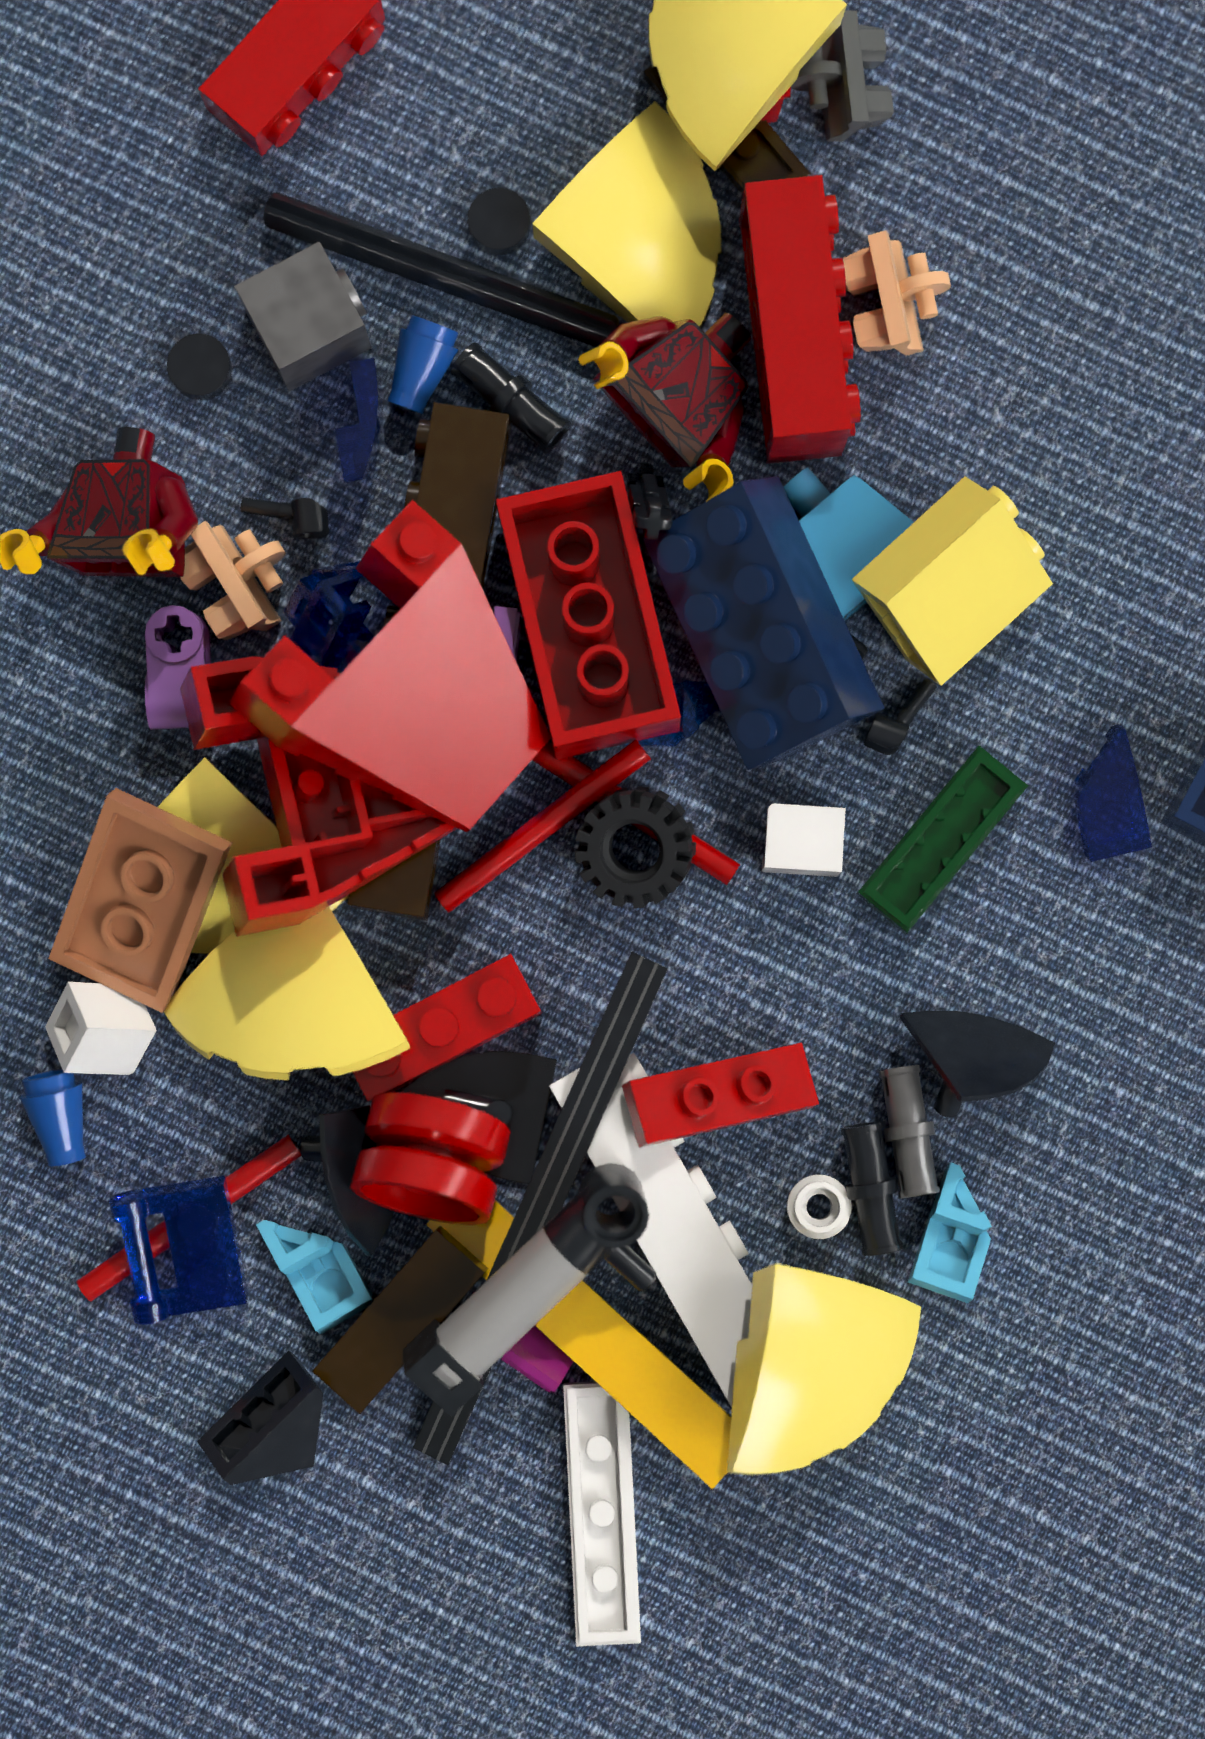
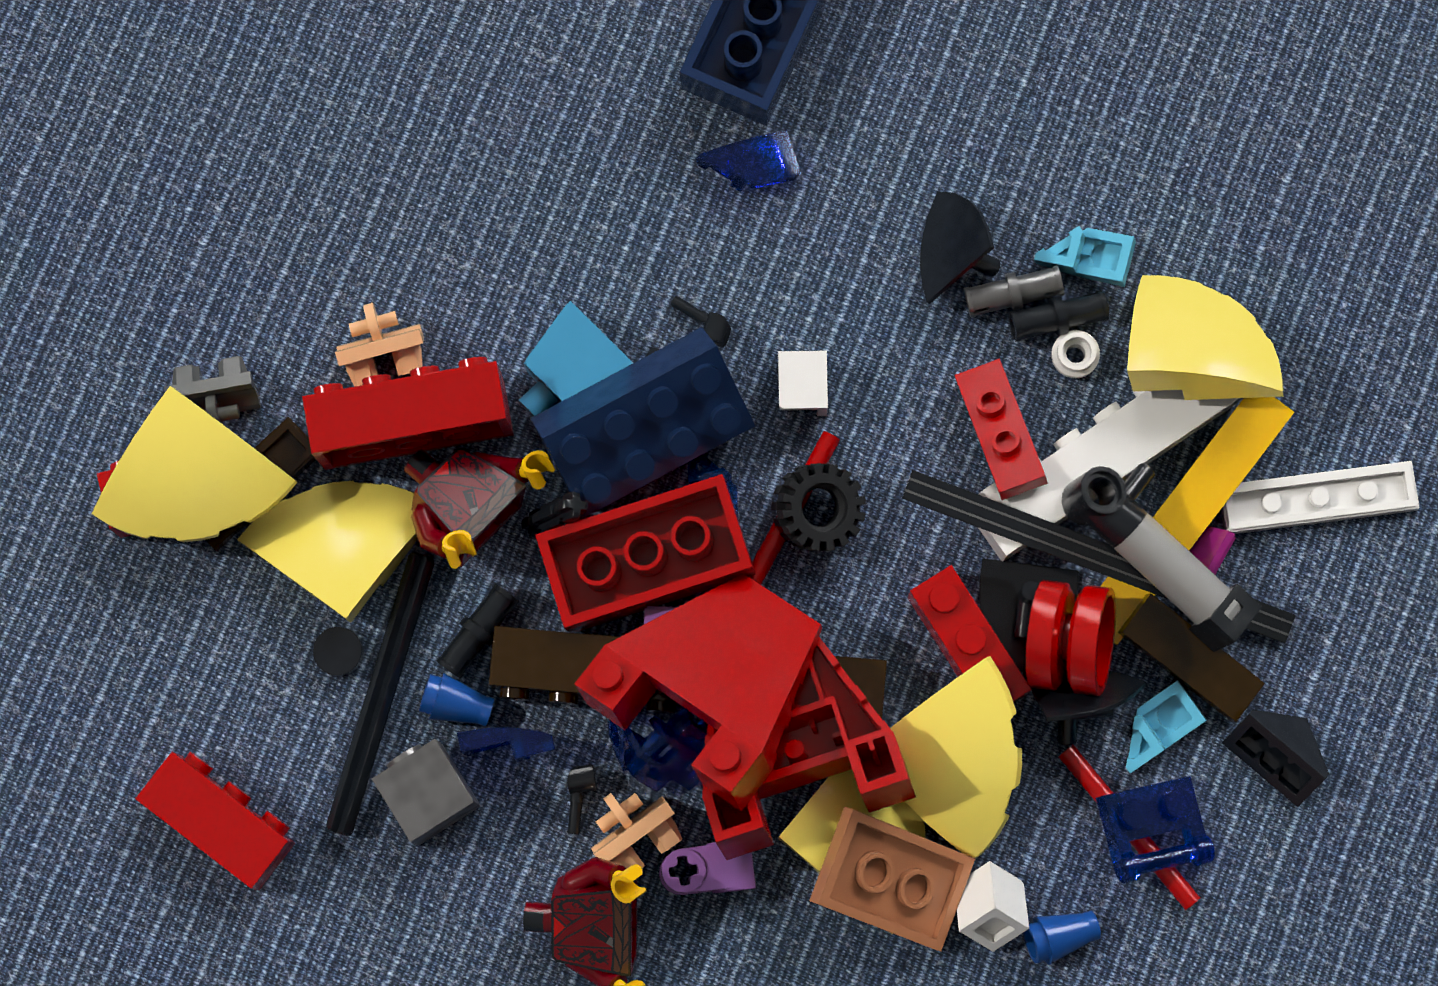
camera: 90 degrees left, 5 degrees down
(199, 366) = (467, 875): black tile -> none
(542, 825) = (807, 580): red bar -> none
(942, 839) = (793, 282): dark green plate -> none
(954, 579) = (599, 283): light yellow brick -> none

